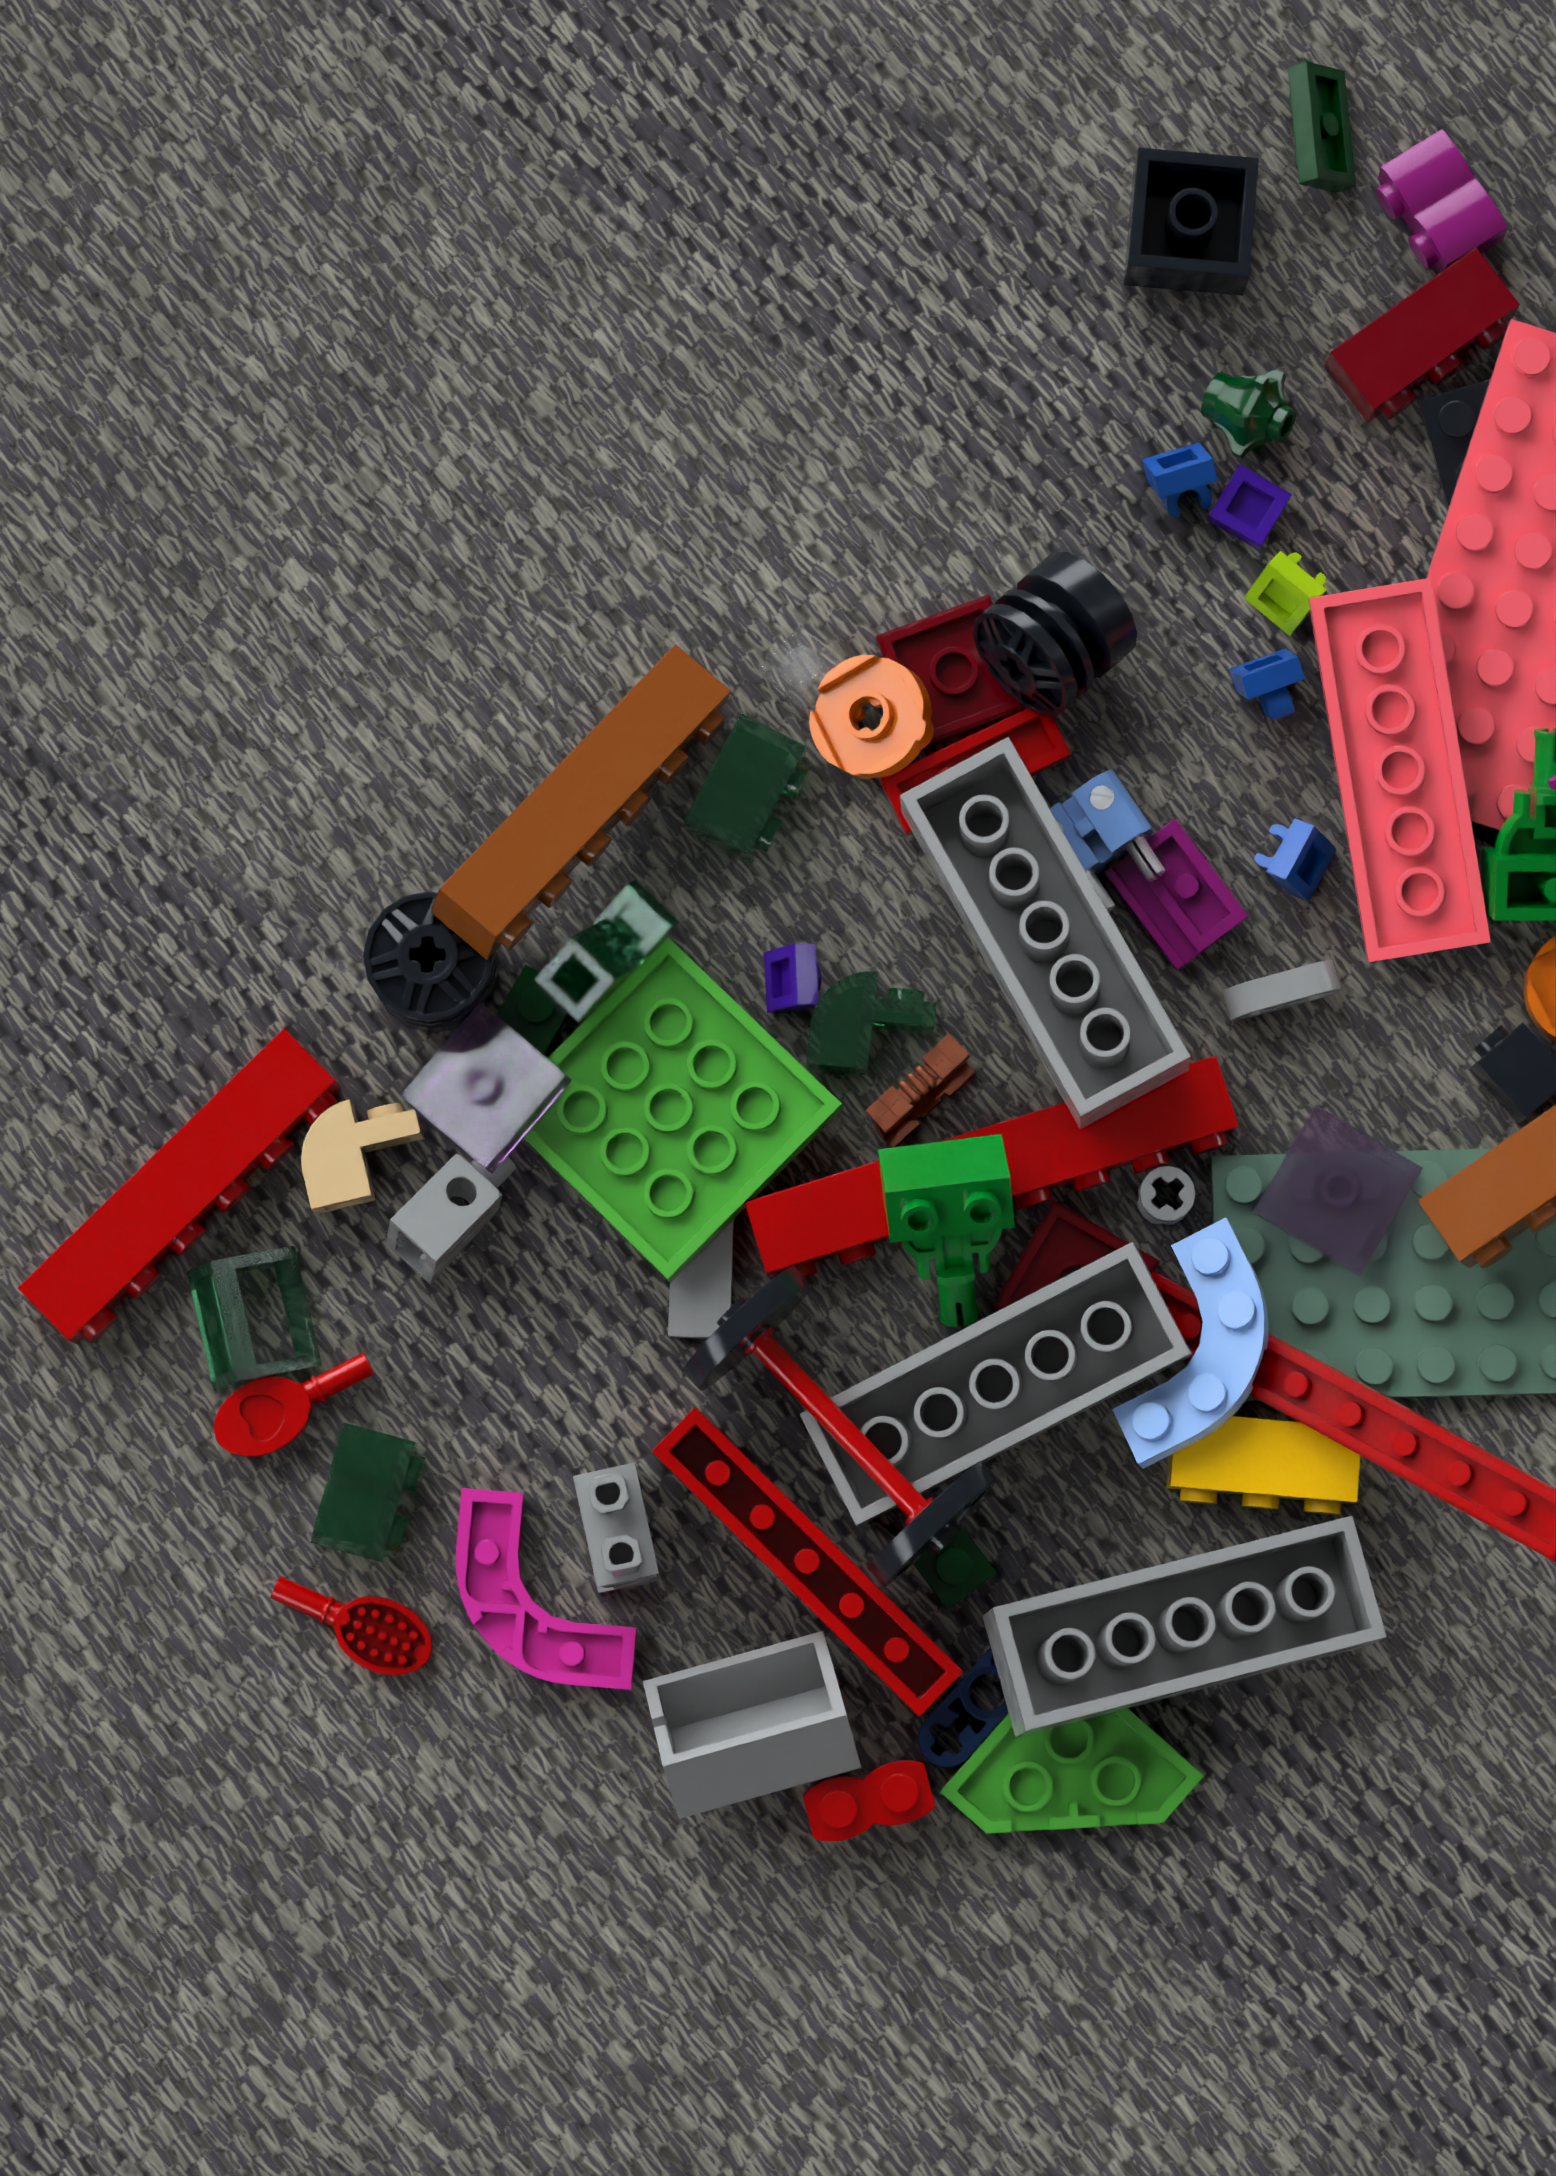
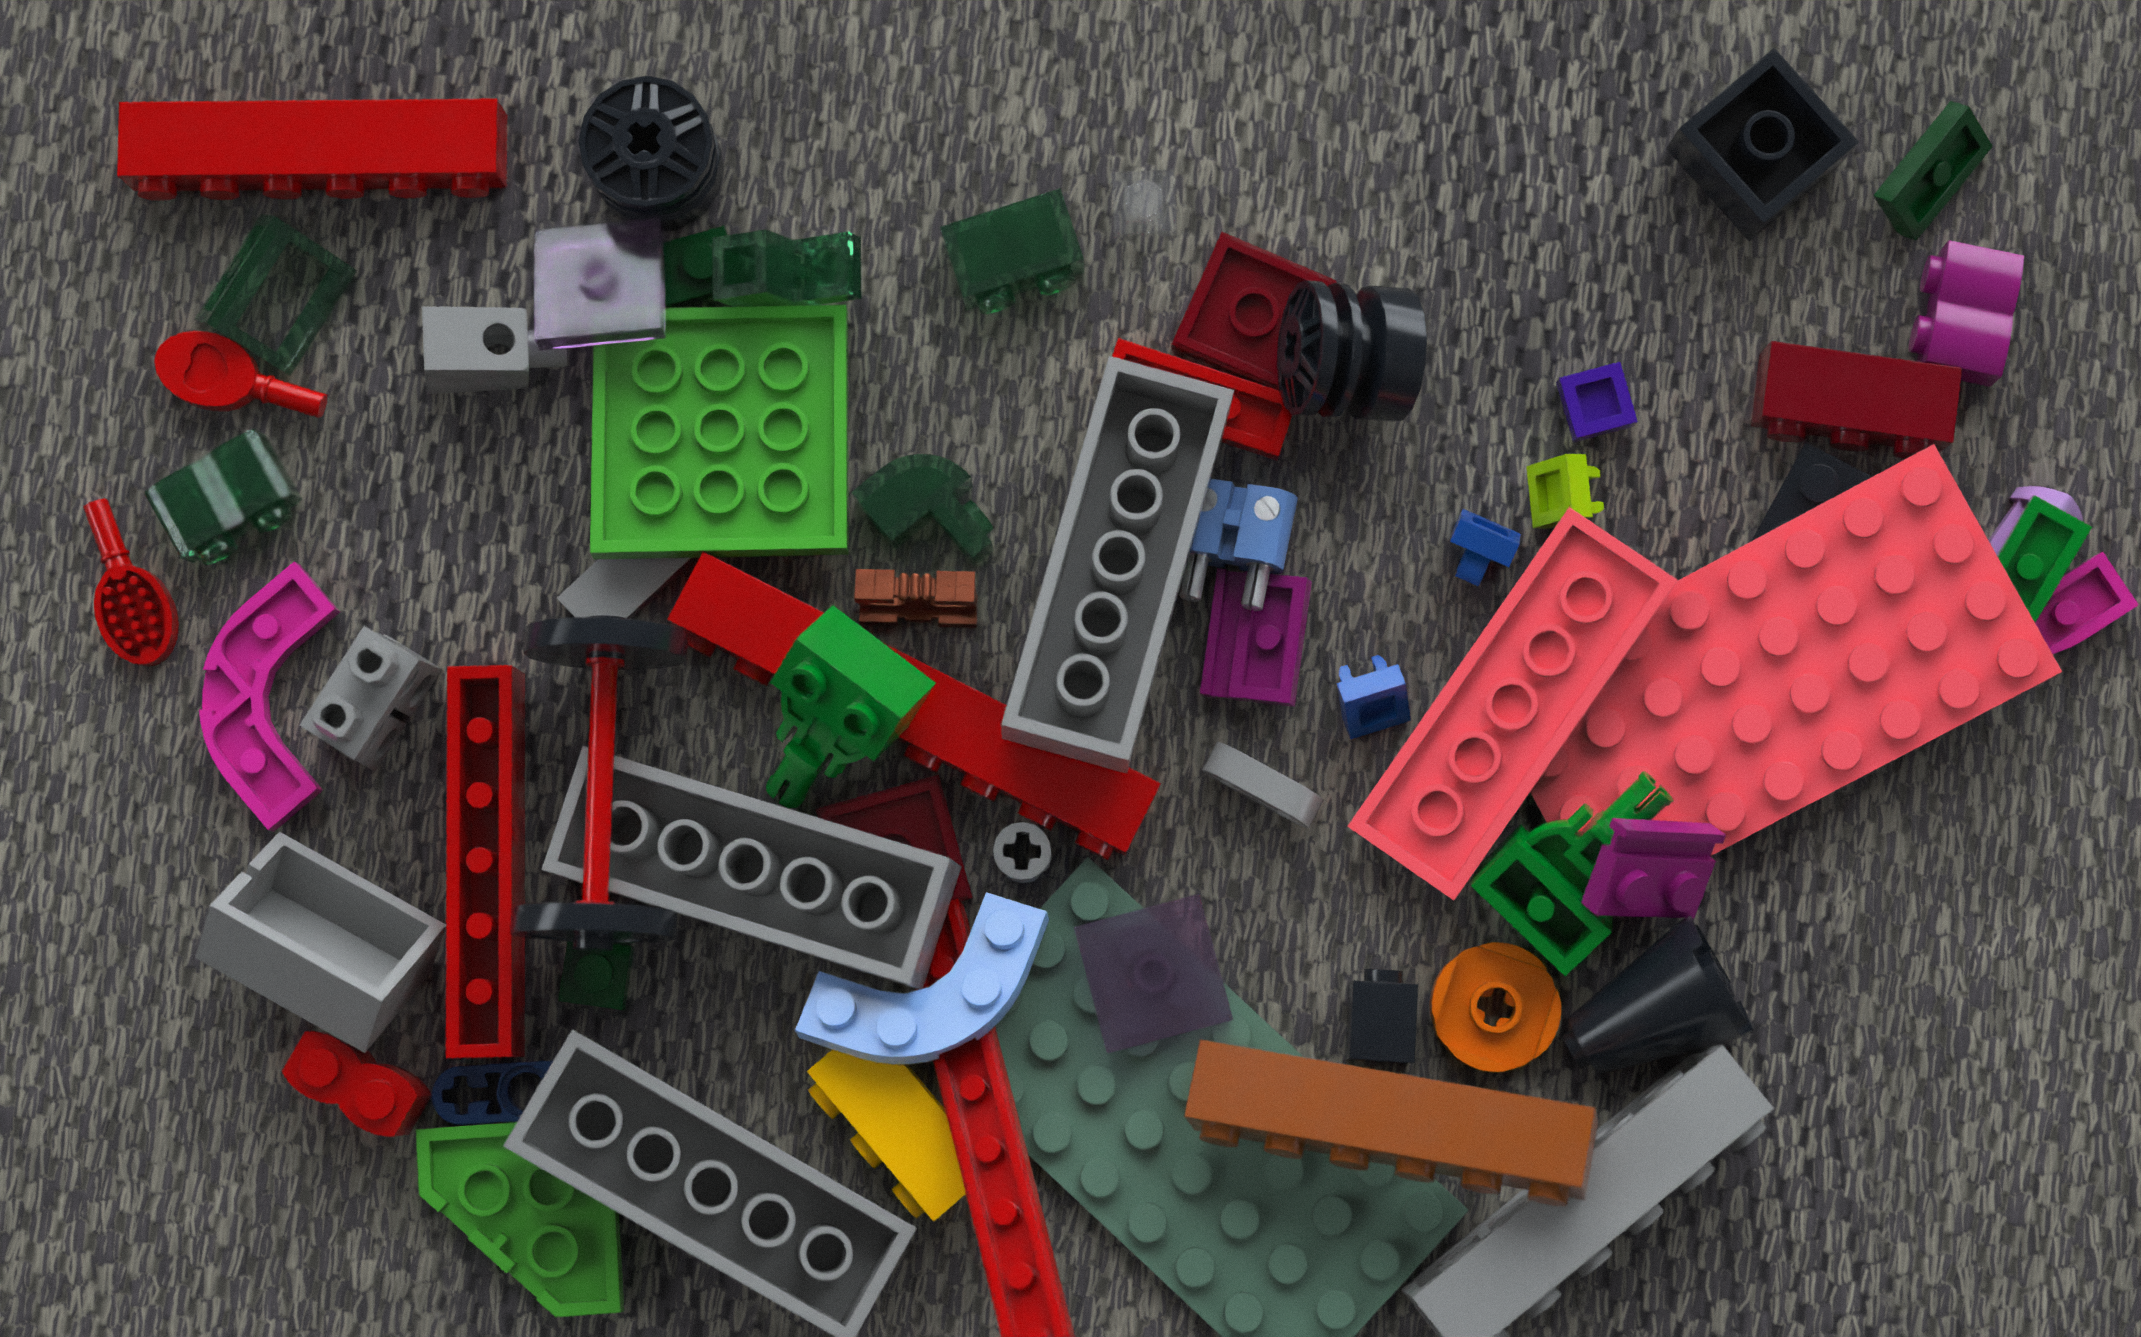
camera: 45 degrees right, 0 degrees up
(336, 1147) = (449, 229): tan brick -> none
(581, 803) = (871, 139): dark orange brick -> none
(791, 978) = (907, 423): dark purple plate -> none
(902, 729) = (1170, 315): orange plate -> none
(1181, 471) = (1571, 326): blue tile -> none
(1249, 409) = (1667, 328): dark green rock -> none

